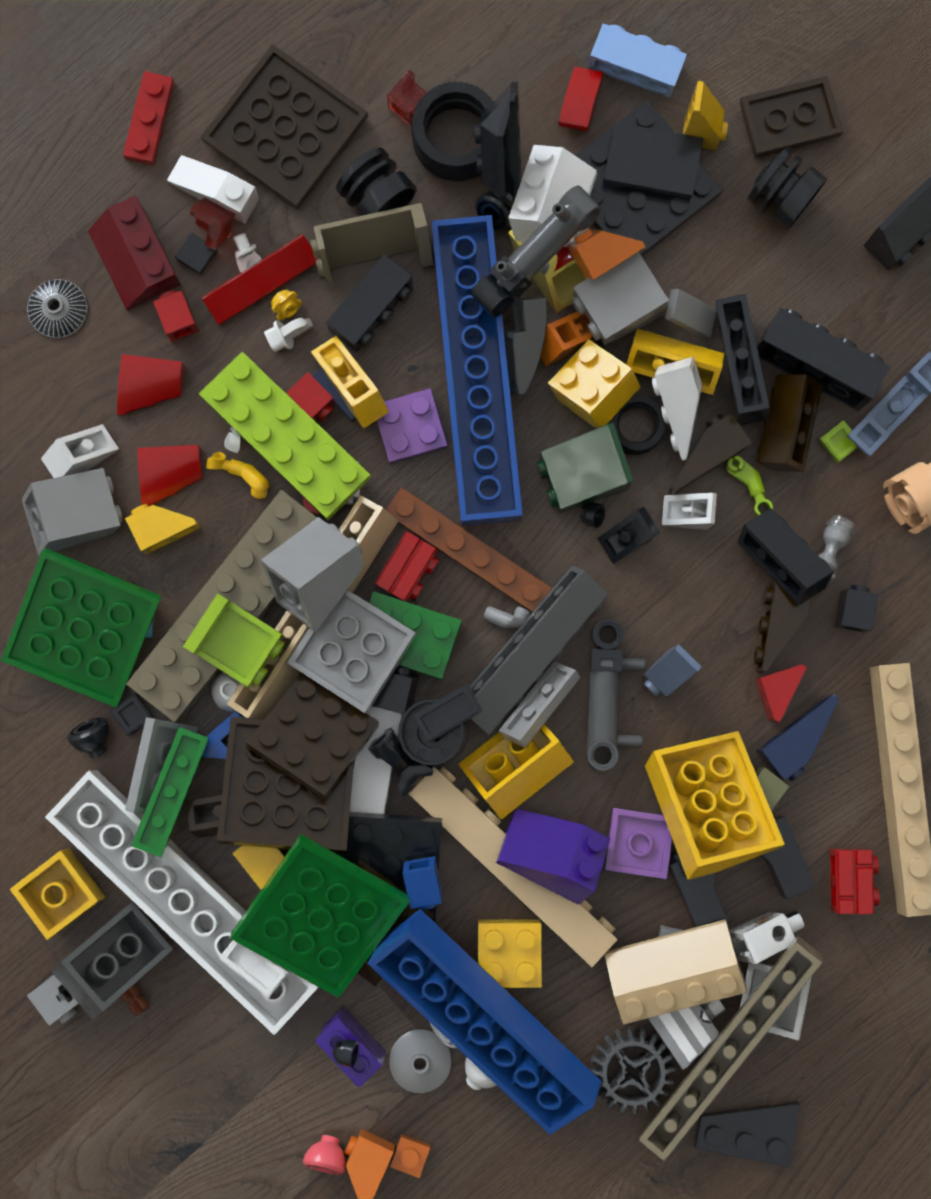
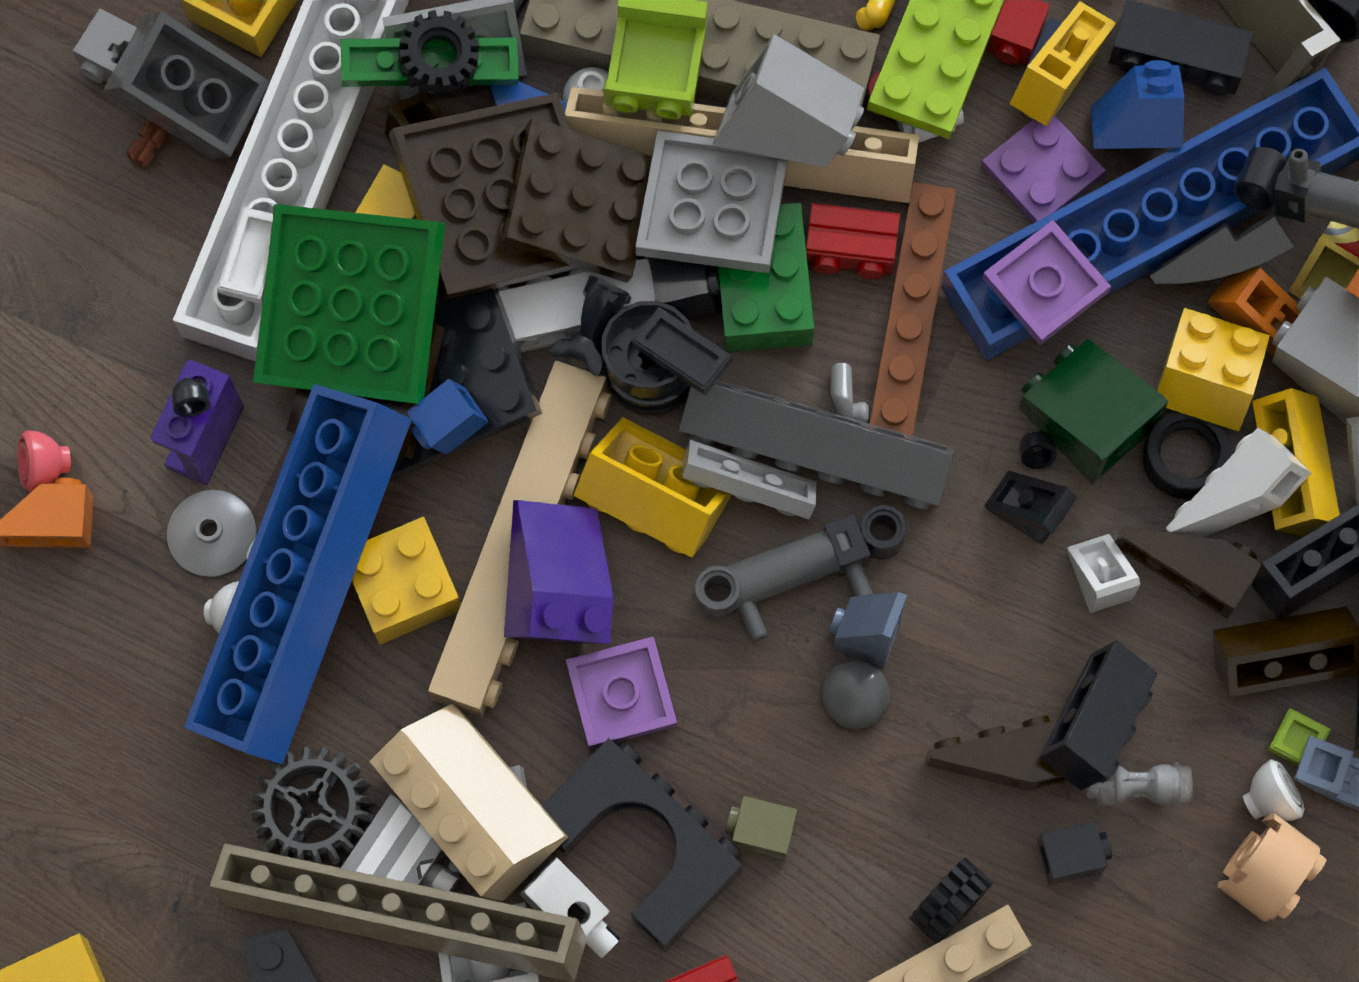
camera: 70 degrees right, 10 degrees down
(152, 781) = (445, 29): none -> black tyre
(406, 348) = (1141, 109): none -> blue slope
(410, 1156) = (83, 570): orange plate -> none
(500, 461) = (1046, 282): none -> medium lavender plate
(700, 697) = (855, 694): none -> dark grey hair
(712, 804) = (717, 756): yellow slope -> none
(751, 477) = (1189, 637): lime arm -> none
(778, 689) = (914, 791): red slope -> none
(797, 742) = (850, 846): dark blue slope -> none
(859, 698) = (951, 900): none -> black tyre
(870, 472) = (1274, 792): none -> white brick

